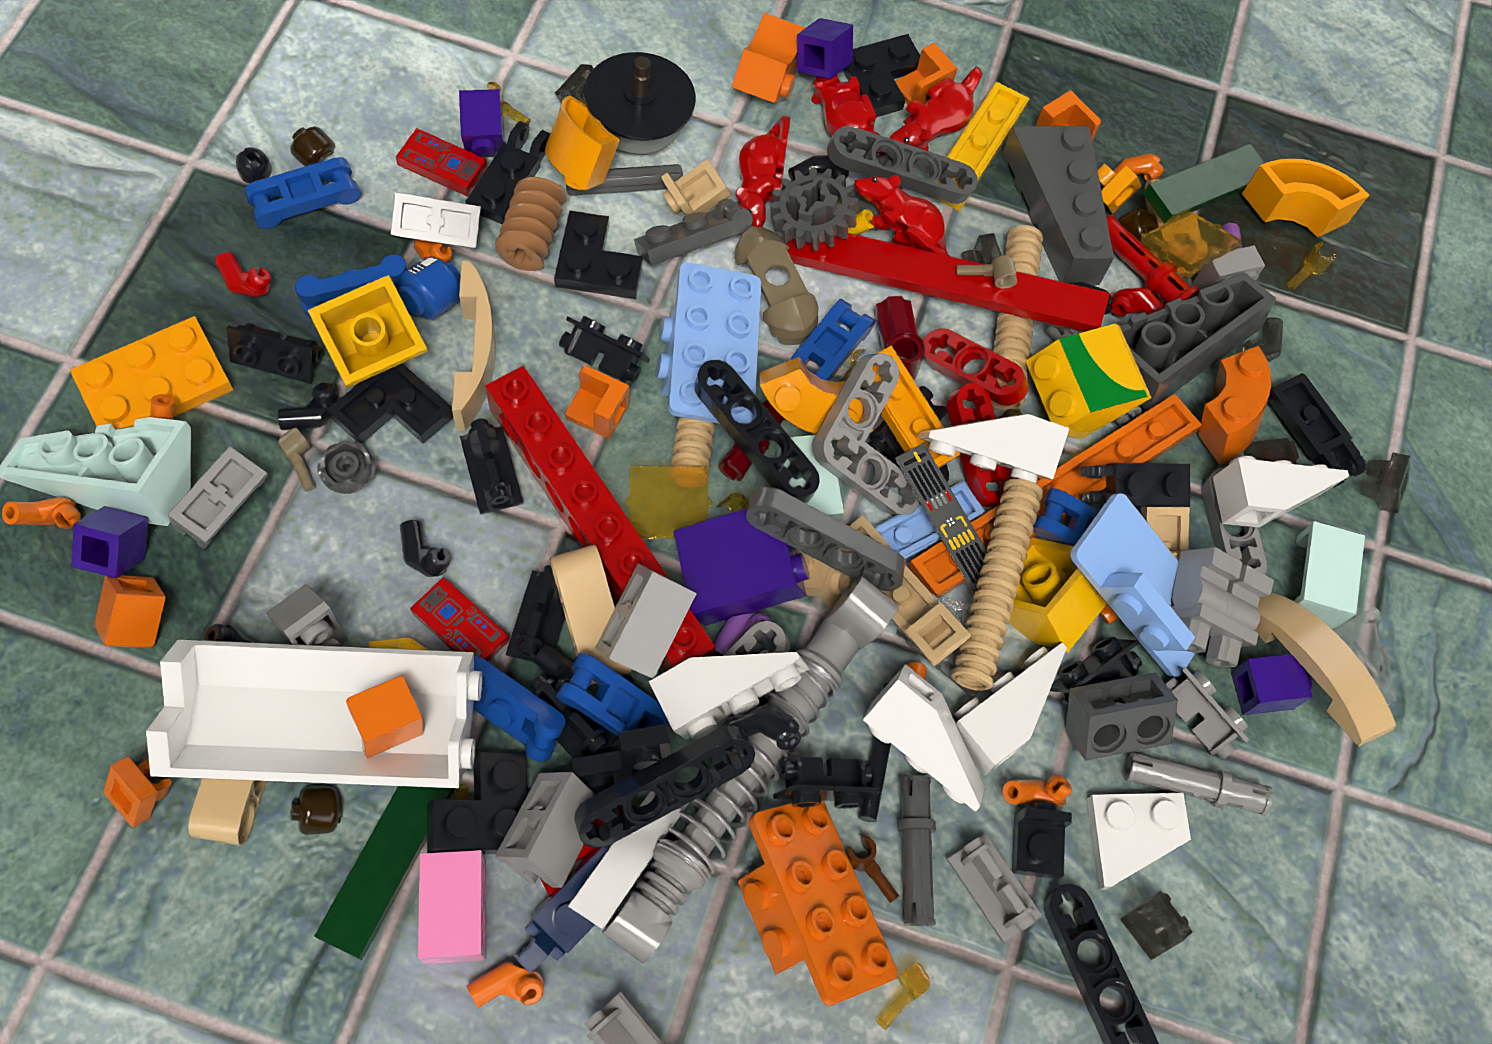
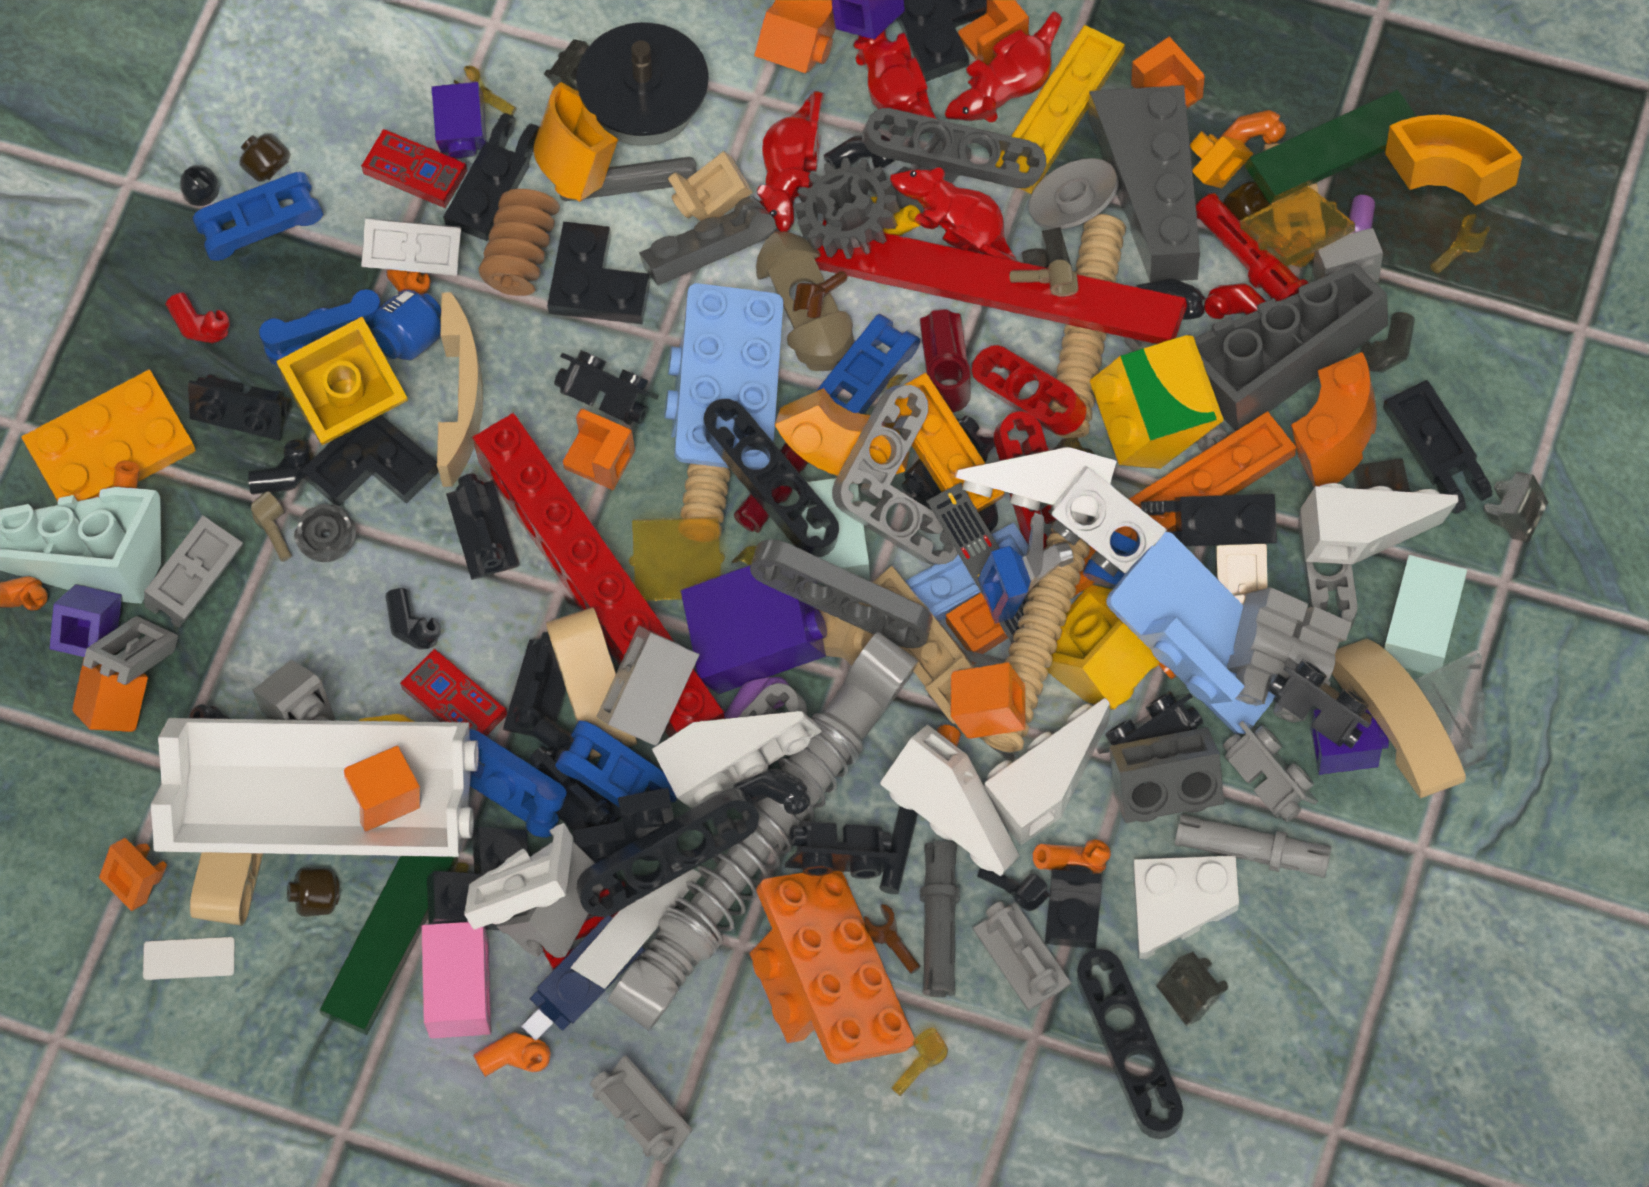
camera: 15 degrees right, 0 degrees up
(157, 574) = (138, 655): none -> light grey tile
(187, 876) = (188, 958): none -> white sticker
(521, 816) = (521, 882): none -> white wing
(787, 278) = (811, 296): none -> reddish brown hand
(967, 645) = (988, 700): none -> orange panel
(984, 526) = (1010, 577): none -> blue piece
(996, 826) = (1027, 894): none -> black hand
(999, 209) = (1073, 193): none -> light grey dish
(1069, 473) = (1113, 512): none -> brick
(1278, 666) = (1338, 710): none -> black hinge

